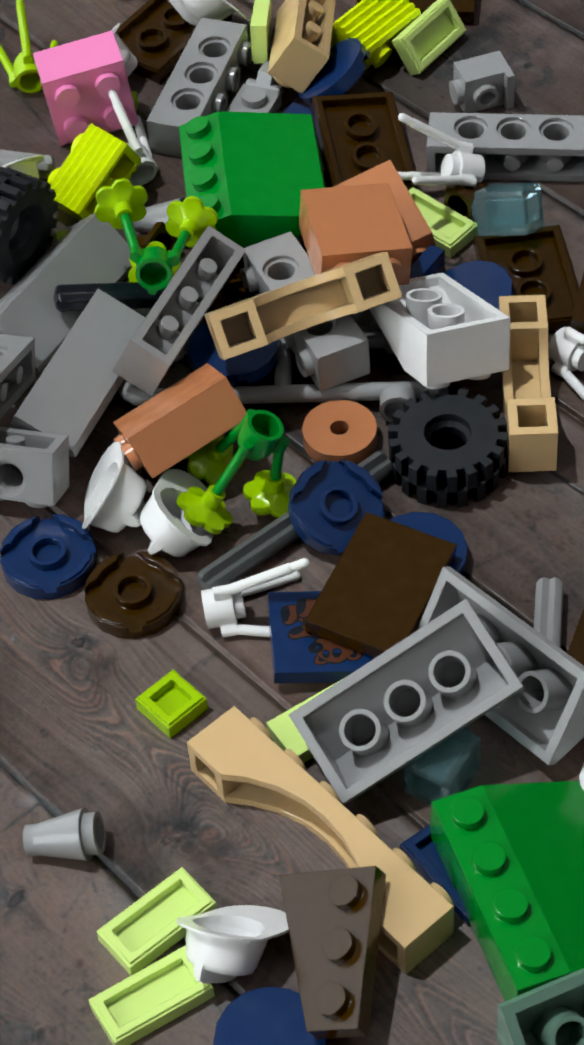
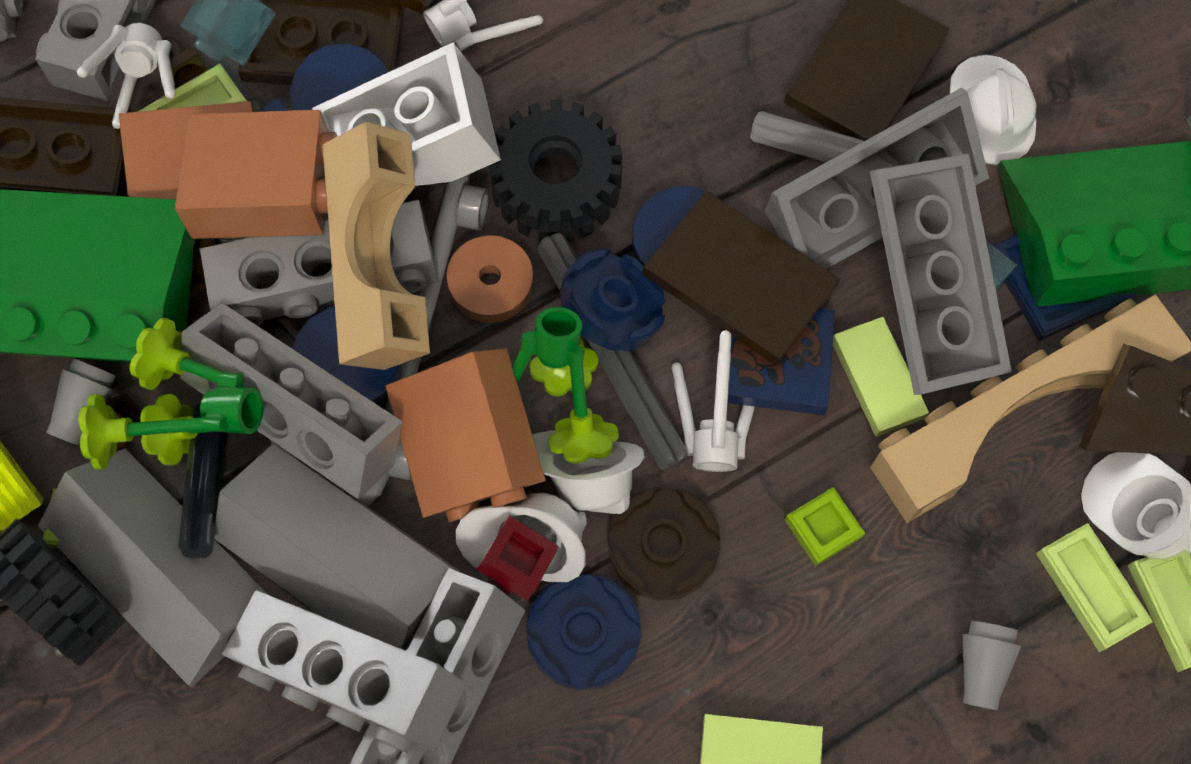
camera: 85 degrees left, 20 degrees up
(82, 471) = (517, 559): none -> dark red tile
(526, 387) = (509, 79): tan arch -> none

